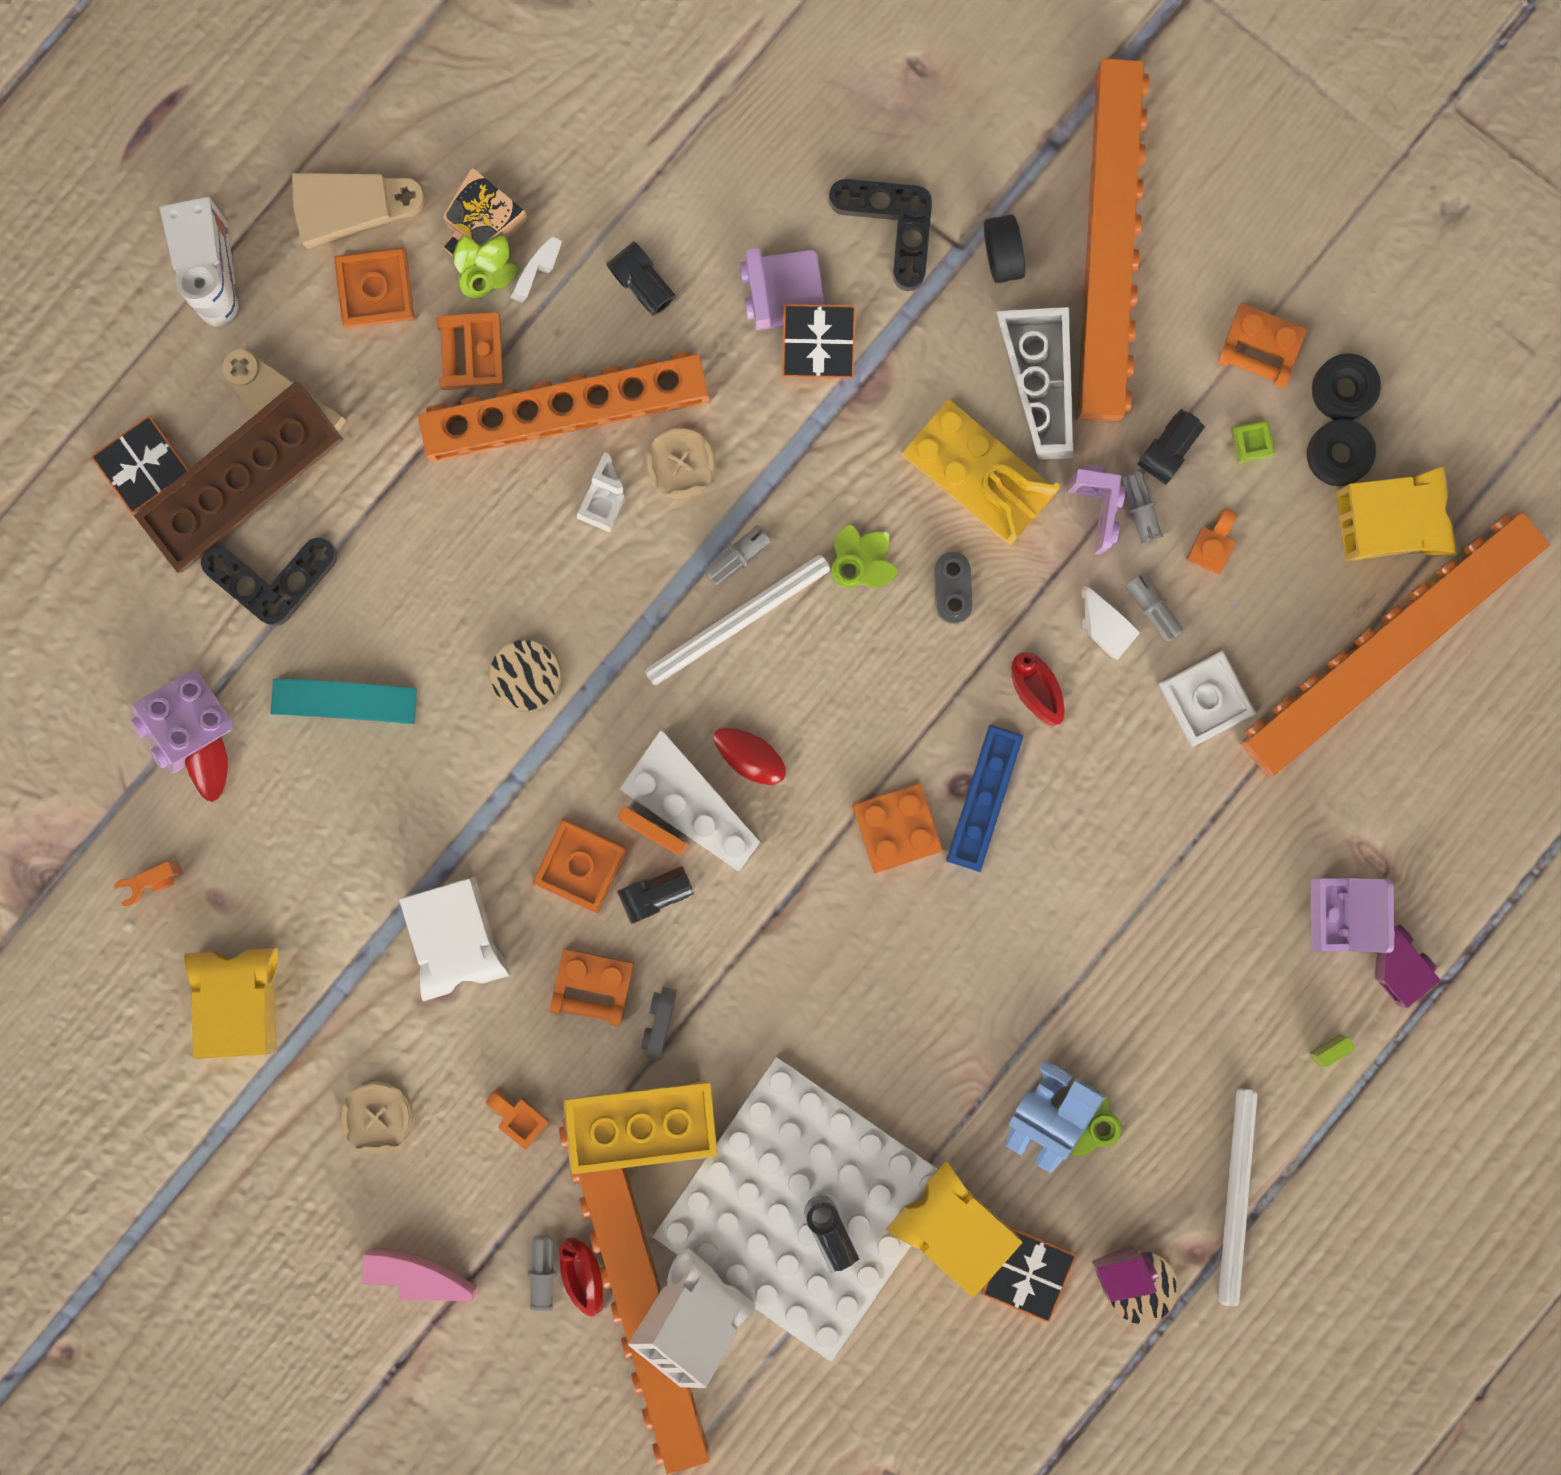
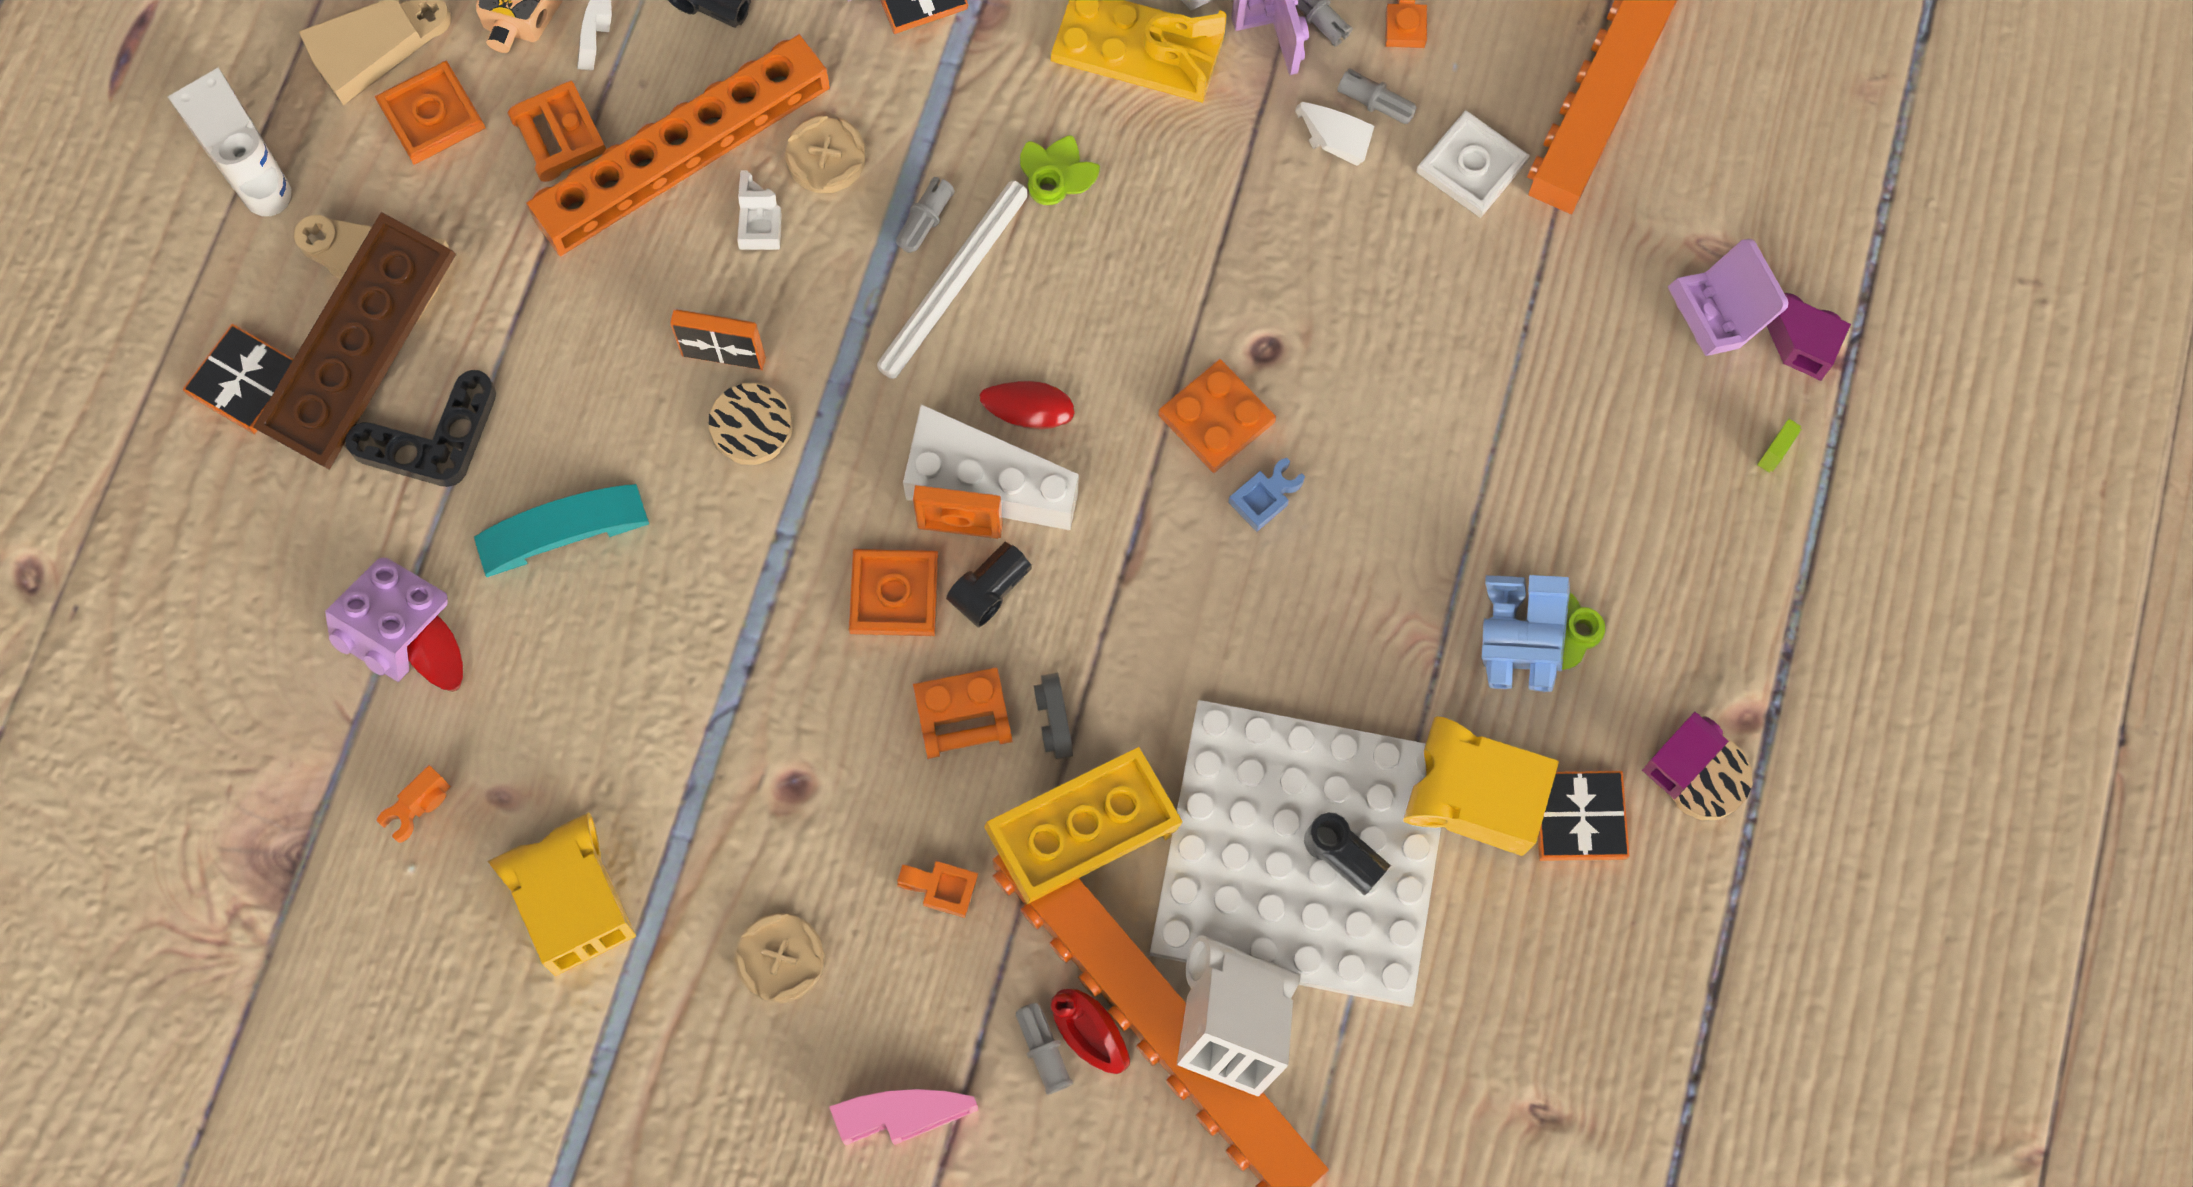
camera: 25 degrees left, 15 degrees down
(452, 938) = (784, 717): white piece -> none
(483, 262) = (537, 36): lime plate -> none
(524, 601) = (718, 339): none -> tile
(900, 915) = (1263, 498): none -> medium blue plate
(953, 587) = (1162, 158): dark grey plate -> none
(984, 798) = (1294, 350): blue tile -> none
(1038, 688) = (1297, 219): red arm -> none
(1237, 1197) = (1761, 640): white axle -> none

